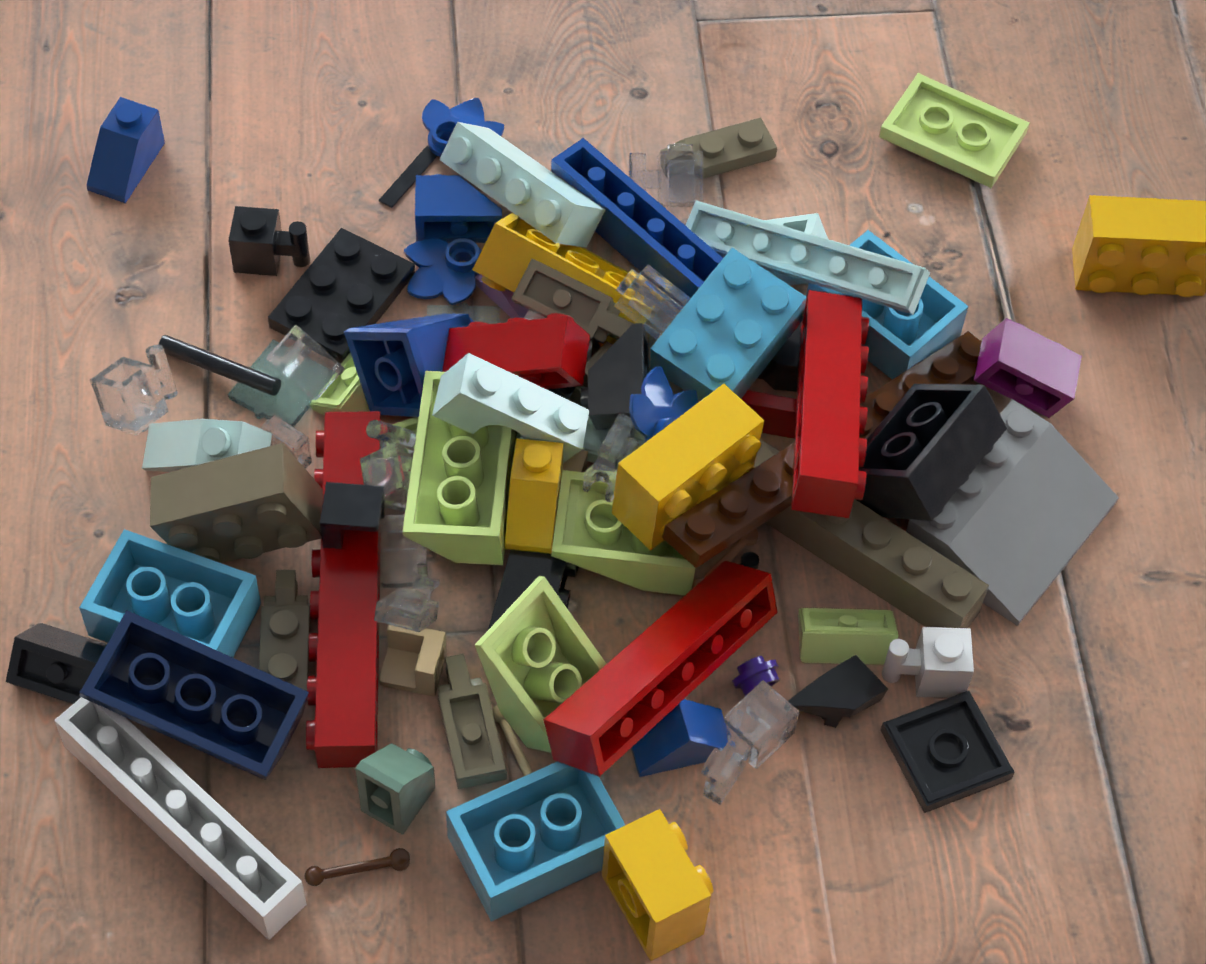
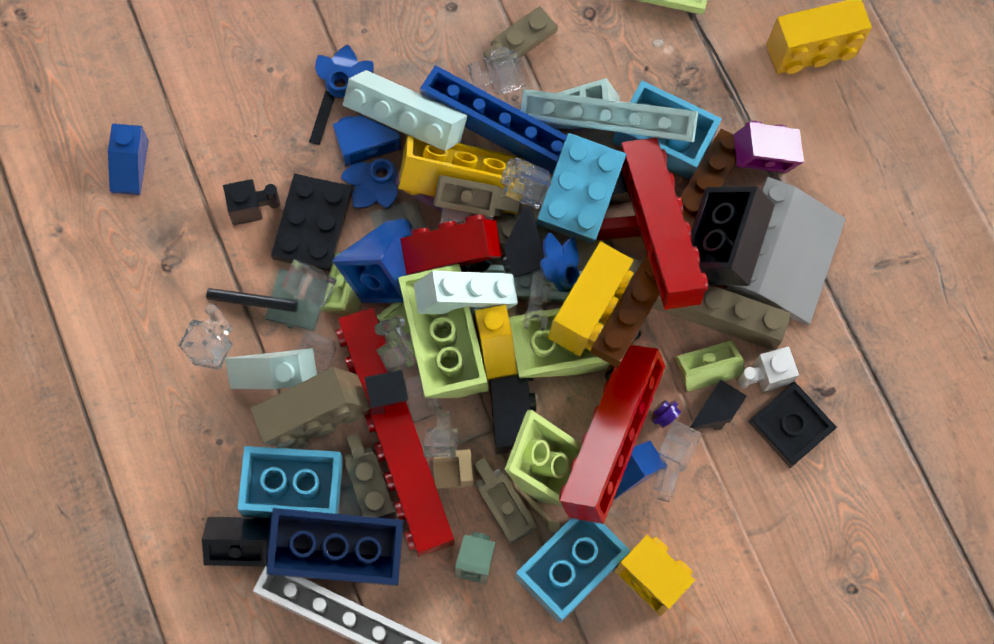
camera: 20 degrees left, 15 degrees up
(398, 860) = (489, 602): reddish brown hinge -> none

